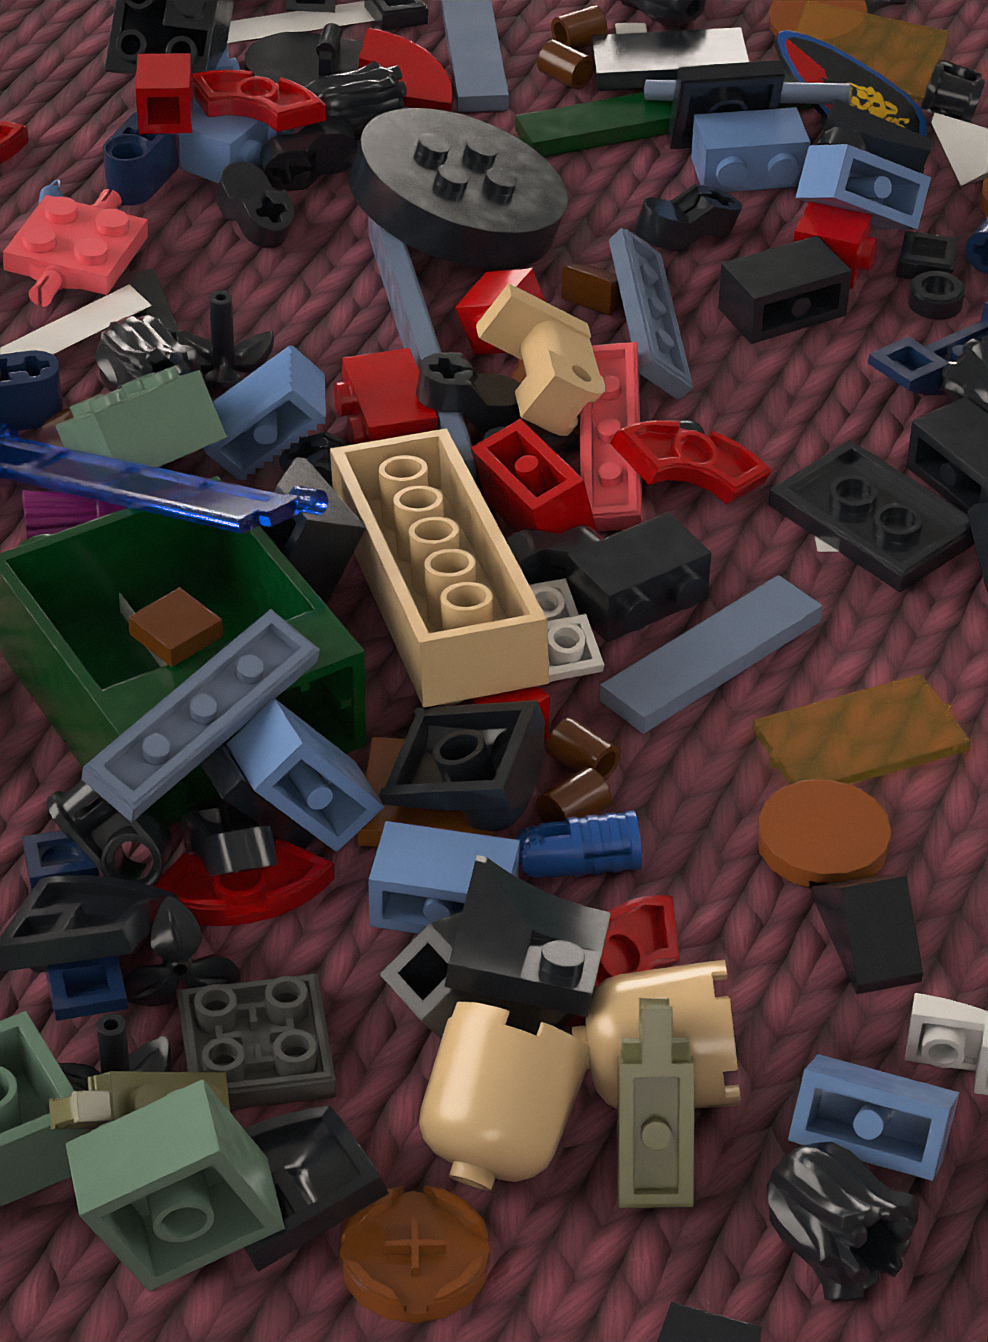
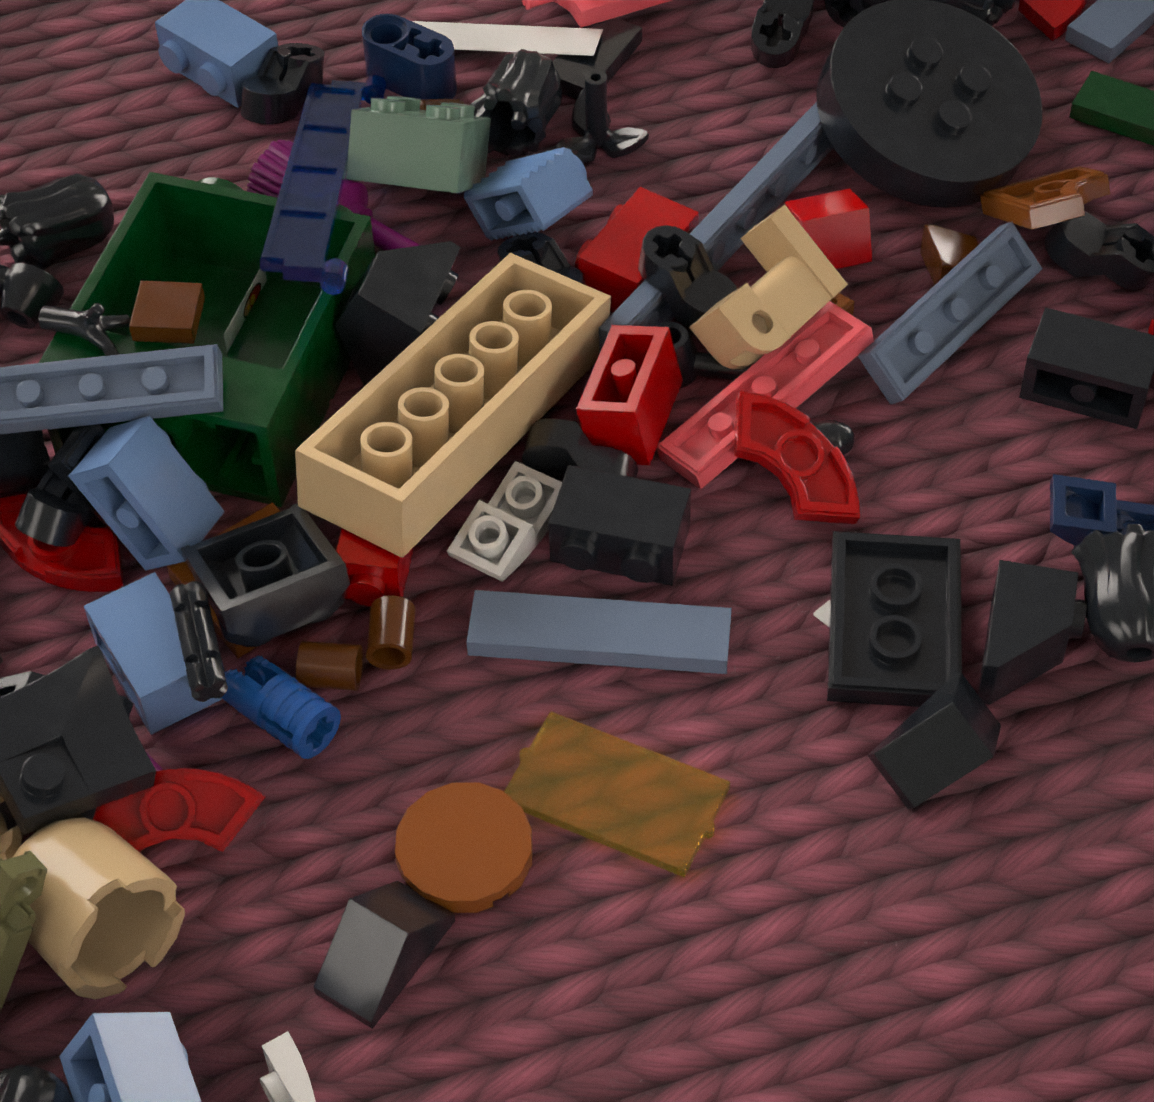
camera: 50 degrees right, 10 degrees up
(125, 676) = (85, 324): none -> black bar
(501, 827) = (198, 641): none -> black axle
(610, 204) = (1046, 198): none -> dark orange tile

